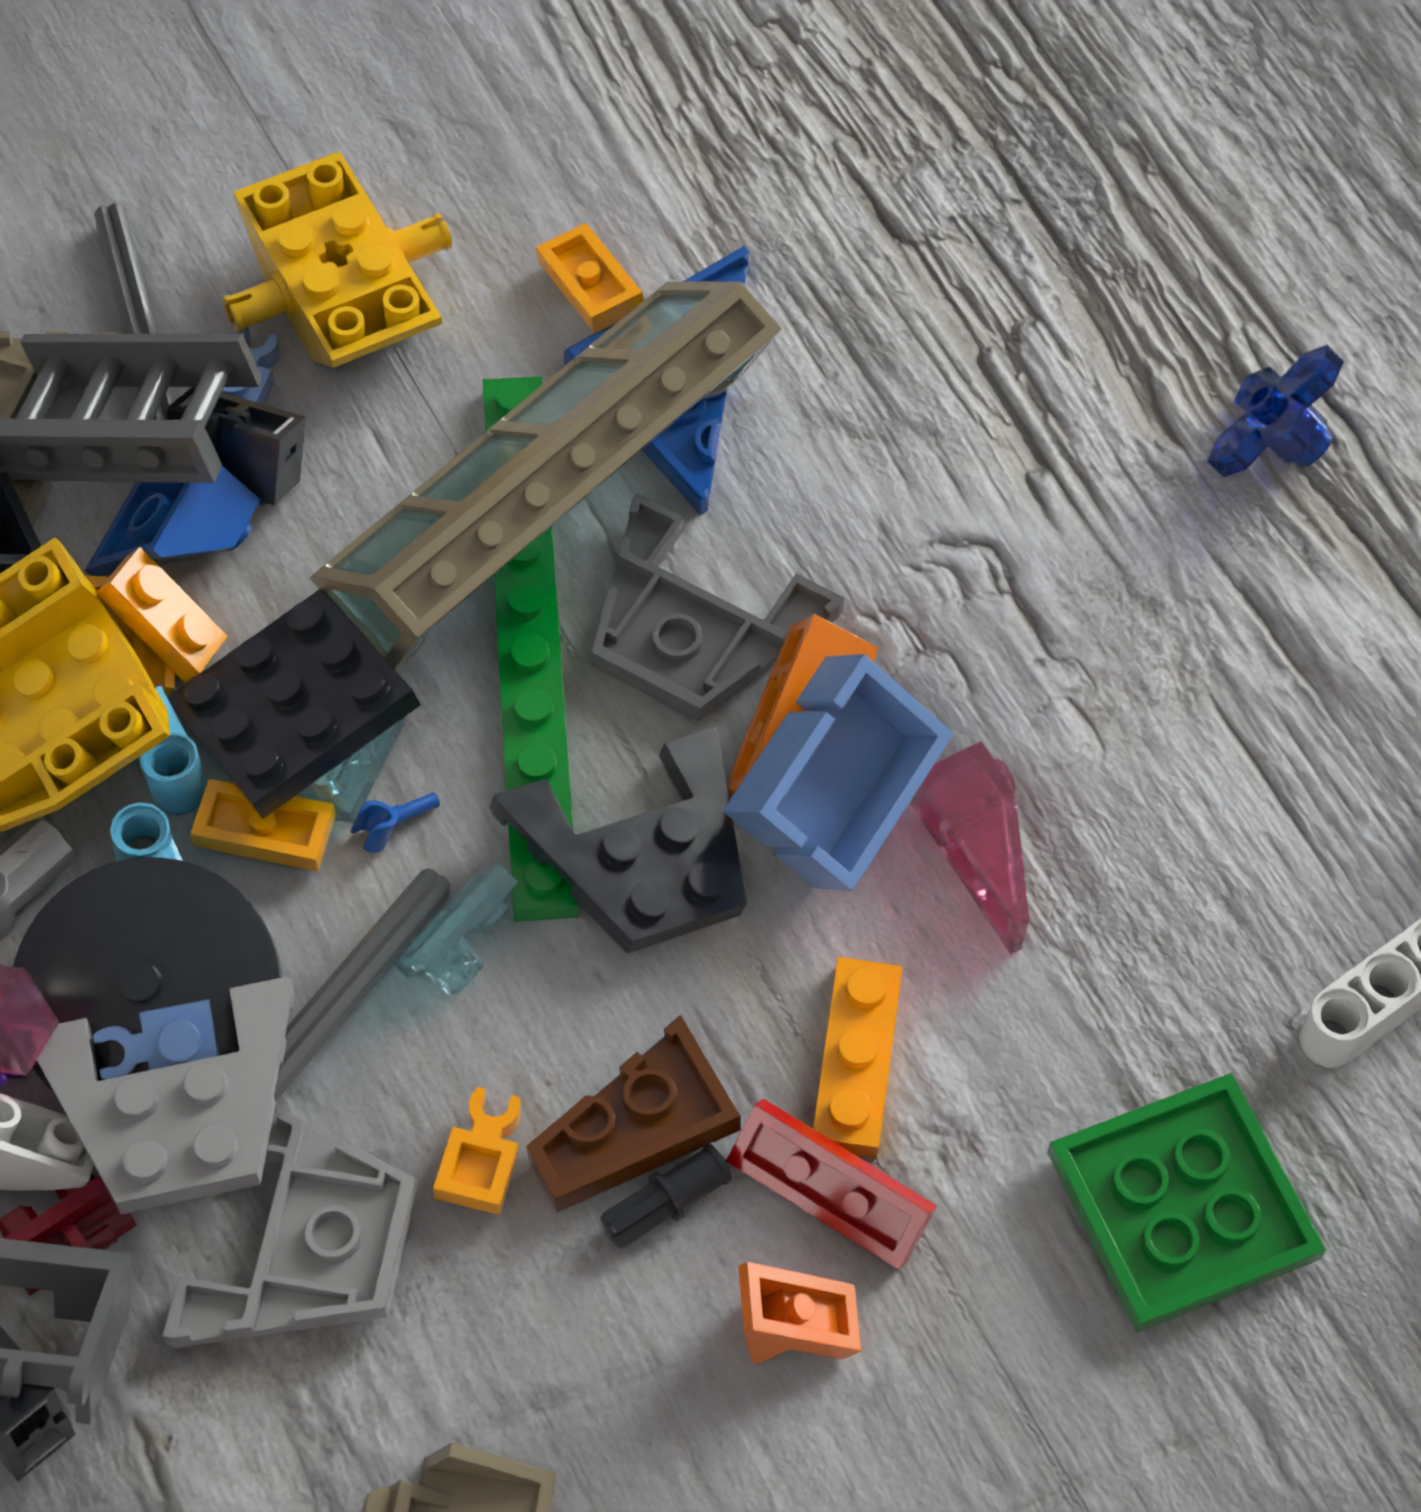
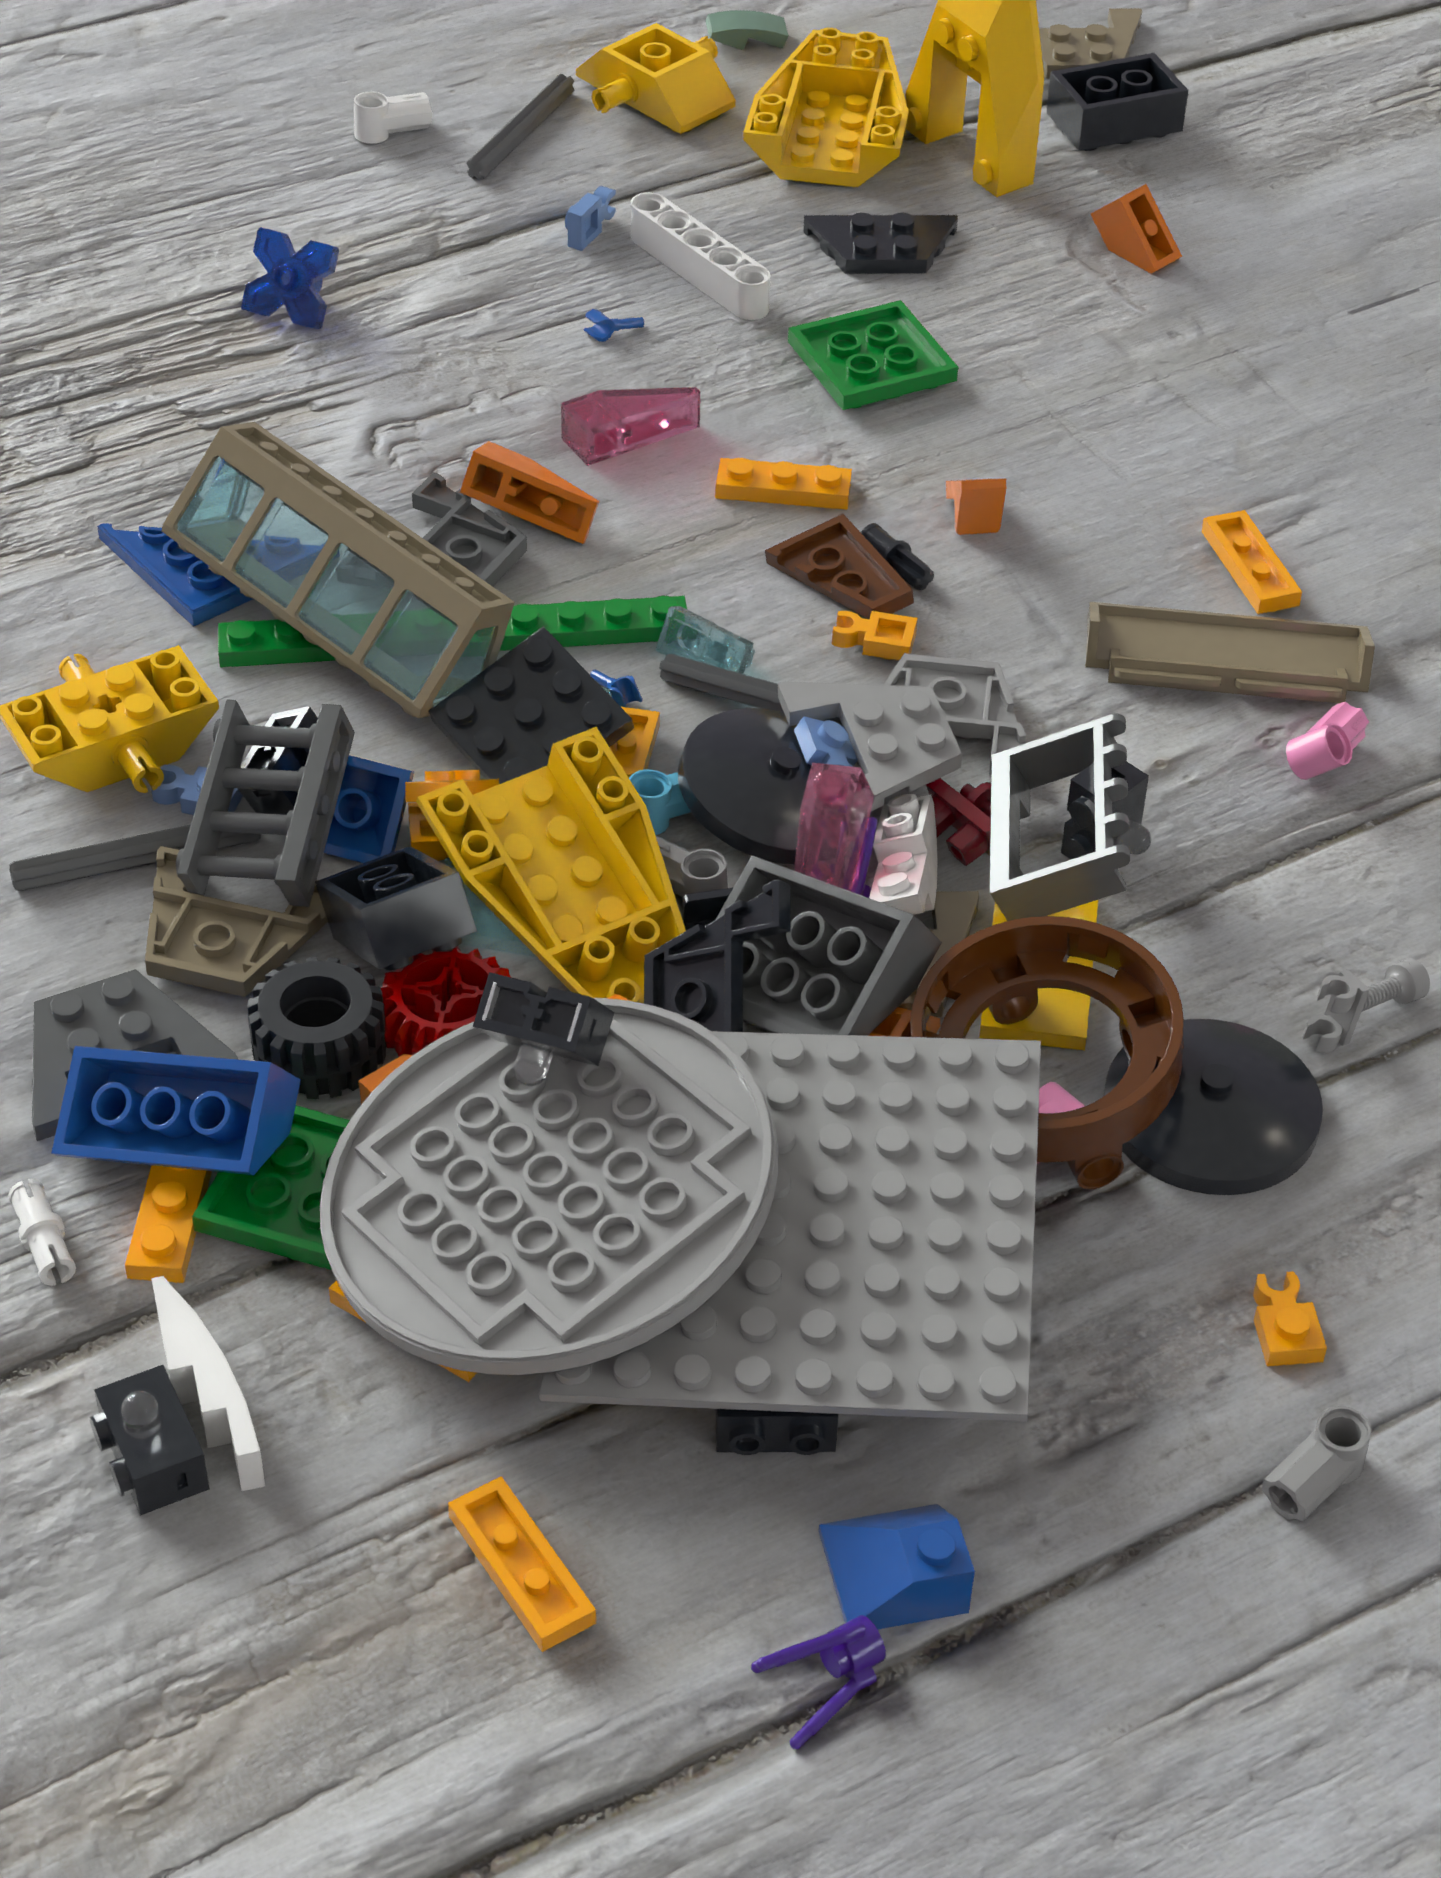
camera: 90 degrees left, 15 degrees down
(589, 277) = (125, 596): light orange plate -> none
(651, 871) = (645, 556): black wing -> none
(831, 1183) = (882, 482): plate -> none
(839, 772) = (593, 453): medium blue piece -> none
(1238, 823) = (605, 327): none -> blue hand

